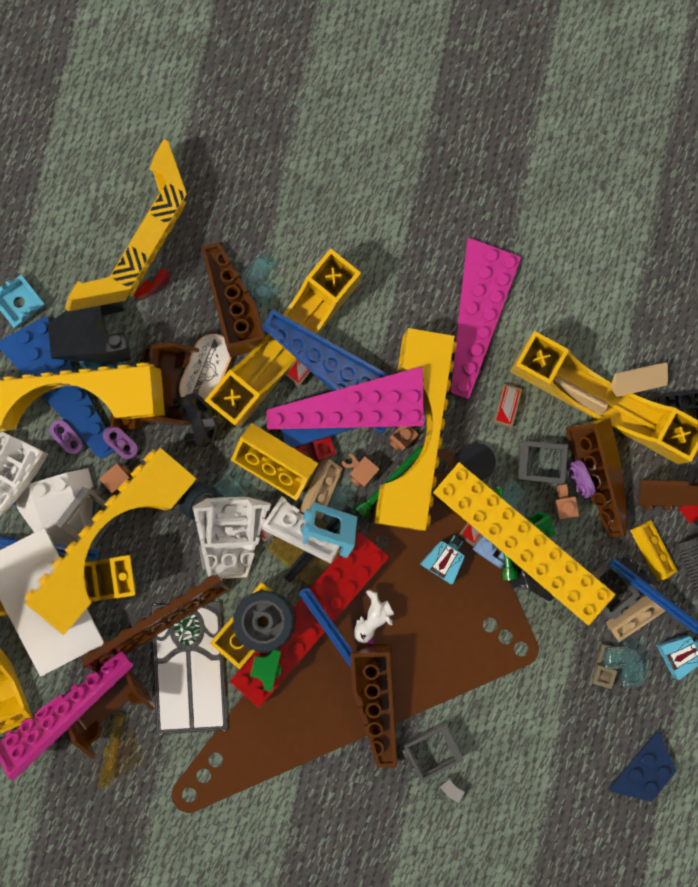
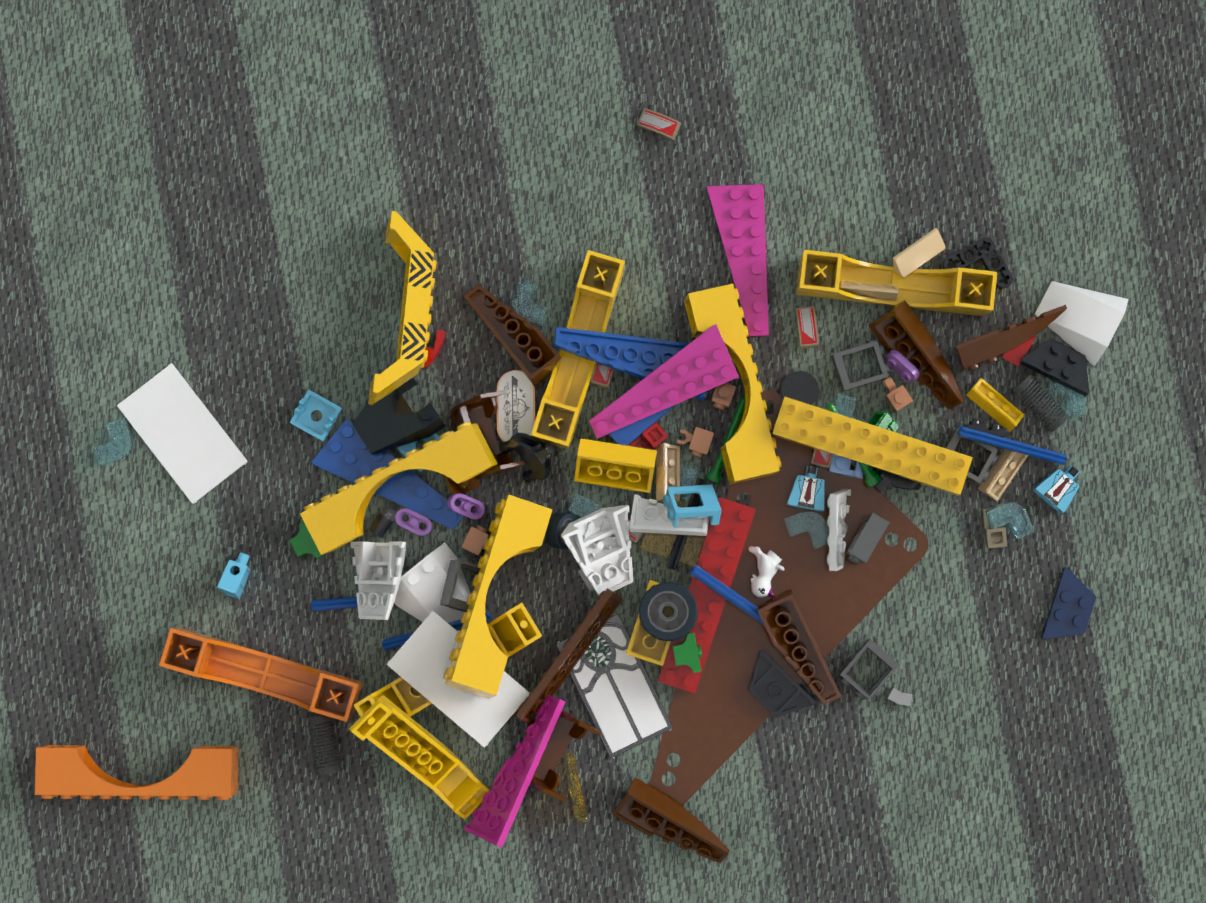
camera: 15 degrees left, 0 degrees up
(39, 425) = (383, 521): none -> black piece
(177, 804) = (660, 815): none -> reddish brown wedge
(339, 733) = (776, 688): none -> black wing
(436, 590) = (809, 522): none -> clear light blue plate
(447, 161) = (659, 123): none -> slope
(458, 606) = (837, 528): none -> white wing
(482, 628) = (866, 539): none -> dark grey window

